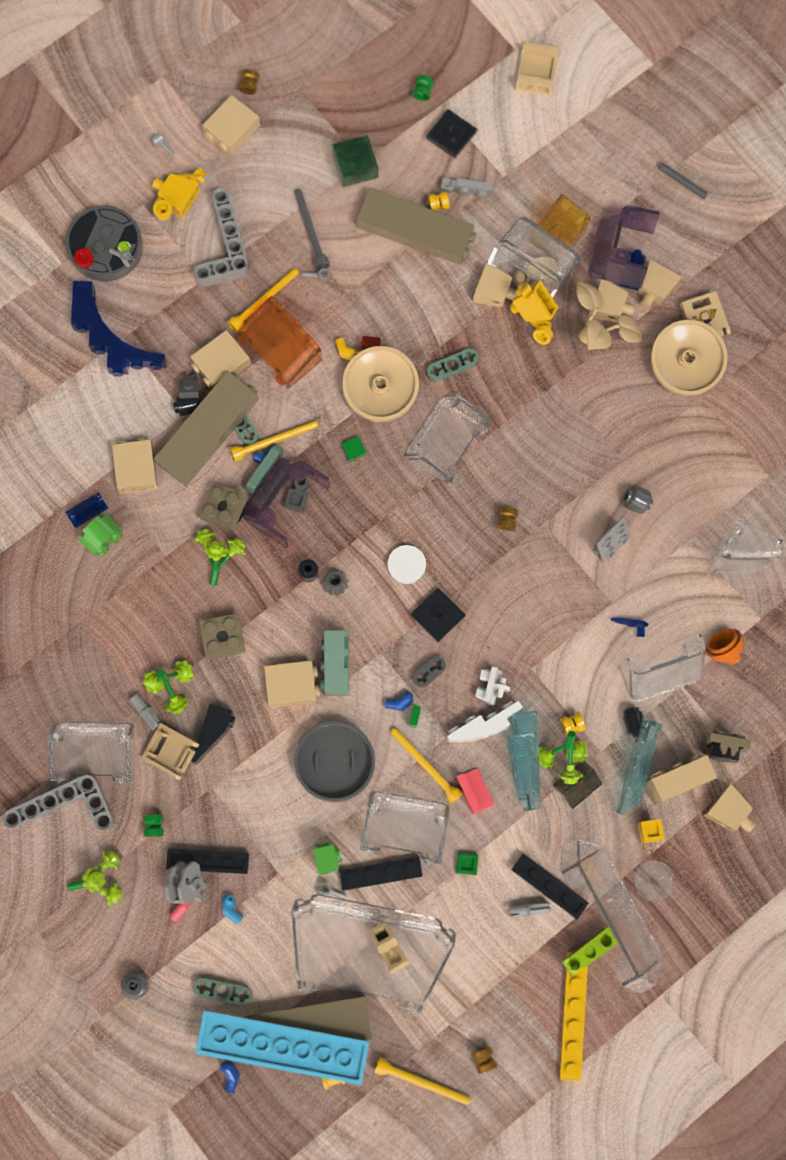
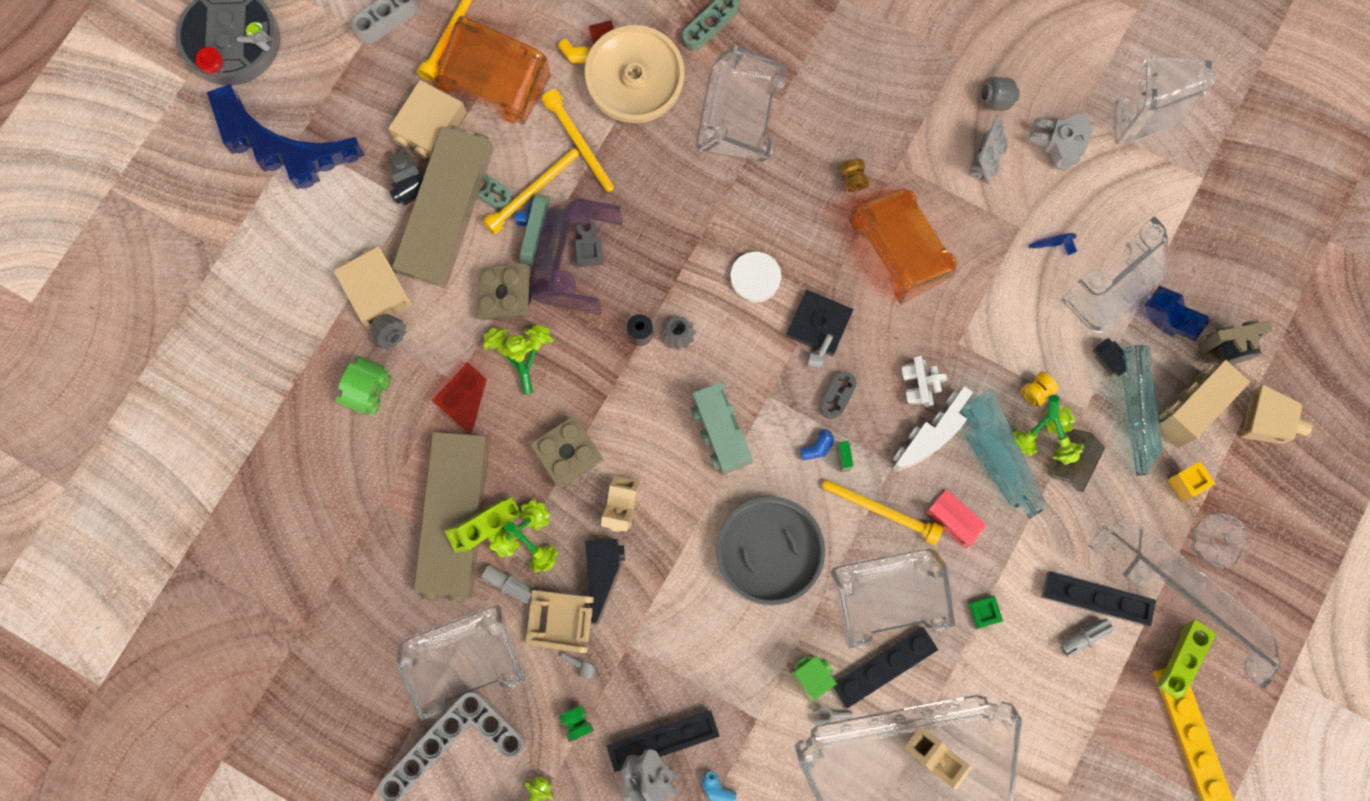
camera: 15 degrees left, 0 degrees up
(87, 510) = (334, 363): clear blue hinge -> none
(126, 650) = (451, 496): none -> dark tan brick
(132, 501) = (387, 331): none -> dark grey piece
(144, 664) = (482, 524): none -> lime leg
(166, 569) = (462, 397): none -> clear red wing
(175, 793) = (586, 669): none -> light grey hand
(245, 687) = (620, 503): none -> tan brick
(291, 684) = (676, 476): tan brick -> none
(315, 381) = (554, 101): none -> yellow piece
(353, 449) = (633, 164): green tile -> none
(425, 640) = (816, 359): none -> light grey hand
(521, 582) = (904, 242): none -> clear orange windscreen
(668, 551) = (1066, 140): none -> light grey hinge
(690, 709) = (1170, 314): none -> clear blue brick
(726, 646) = (1183, 222): orange piece -> none

